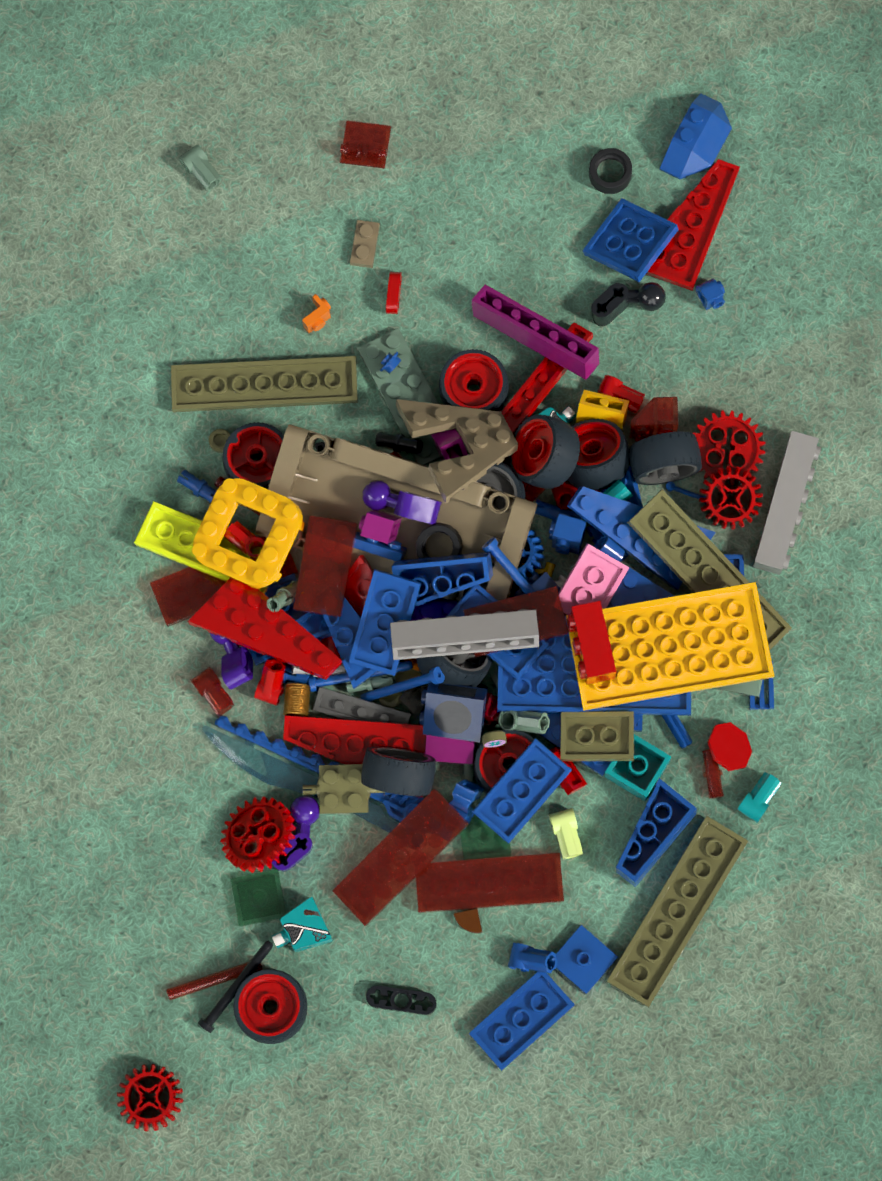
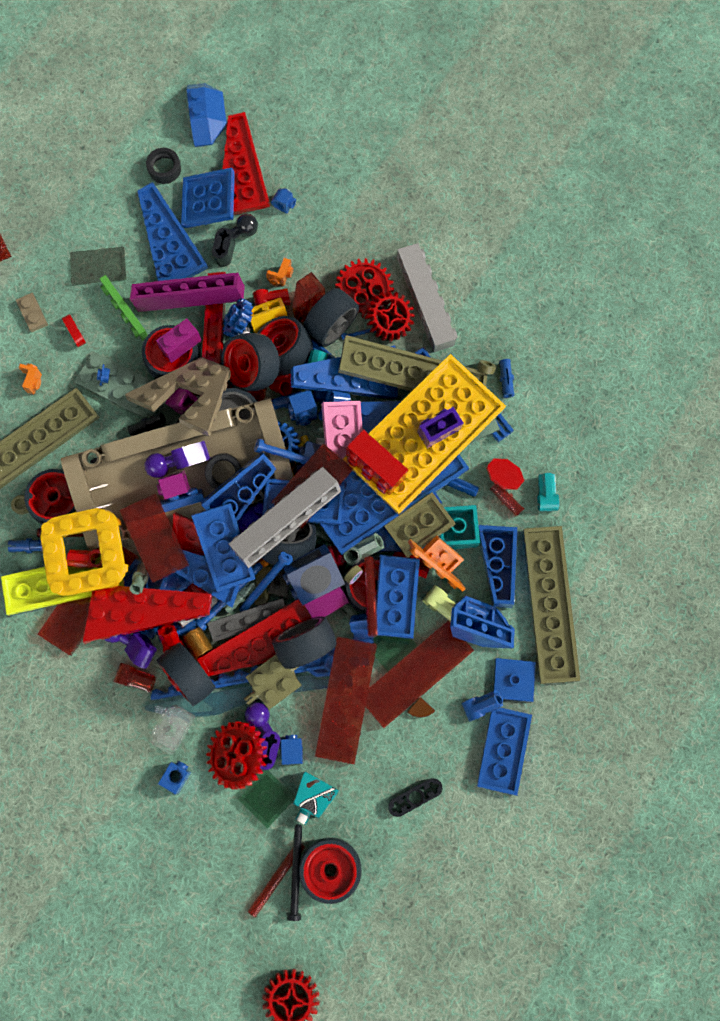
camera: 45 degrees left, 0 degrees up
(176, 810) = (168, 783): none -> blue brick
(227, 766) = (181, 722): none -> clear brick
(263, 721) = (185, 674): none -> black wheel
(314, 869) = (291, 750): none -> blue brick
(459, 294) = (118, 303): none -> bright green plate
(466, 237) = (94, 264): none -> clear smoke piece
(489, 379) = (179, 340): none -> magenta brick
(495, 772) = (370, 596): none -> clear red piece
(555, 268) = (170, 245): none -> blue wing
(566, 395) = (237, 318): none -> blue gear
(587, 878) = (481, 624): none -> blue wedge
(594, 784) = (440, 557): none -> orange bracket
(656, 374) = (284, 272): none -> orange bracket
(684, 651) = (440, 427): none -> dark purple brick
(794, 621) = (486, 367): none -> olive tile
(815, 634) = (506, 378): none -> blue pin

